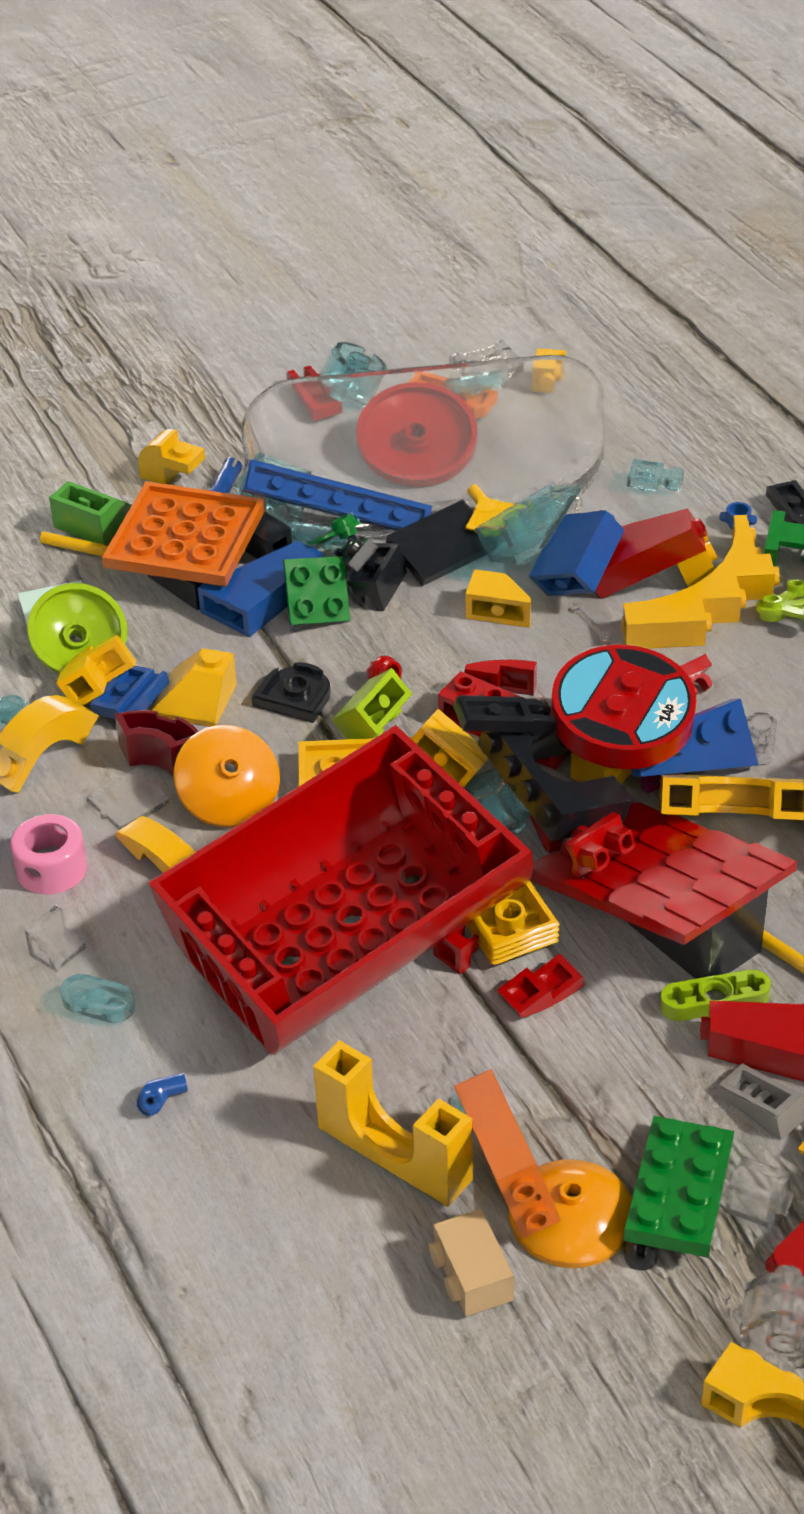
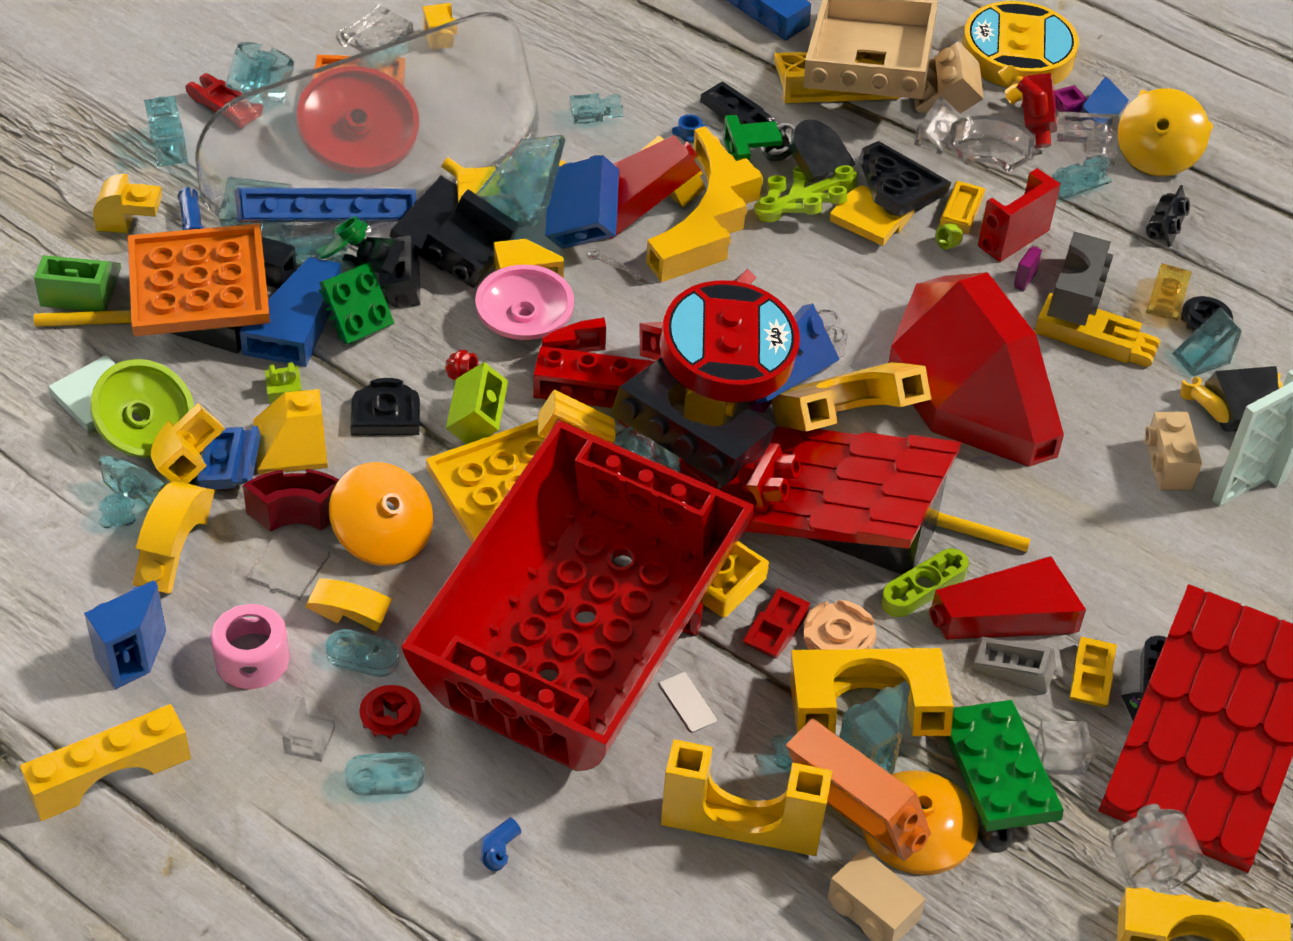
camera: 30 degrees left, 5 degrees up
(31, 682) = (129, 479): none -> clear light blue slope
(122, 943) = (396, 699): none -> red gear
(133, 888) = (360, 653): none -> clear light blue plate
(219, 640) = (281, 381): none -> lime tile
(240, 395) = (166, 131): none -> clear light blue brick
(415, 1029) = (688, 702): none -> white sticker
(450, 564) = (468, 237): none -> black panel
(471, 629) = (524, 302): none -> bright pink dish
(504, 714) = (636, 380): black hinge -> none
(548, 1045) = (825, 674): none -> yellow arch
(565, 1112) = (878, 726): none -> clear light blue slope
(600, 1014) = (839, 627): none -> light nougat tile

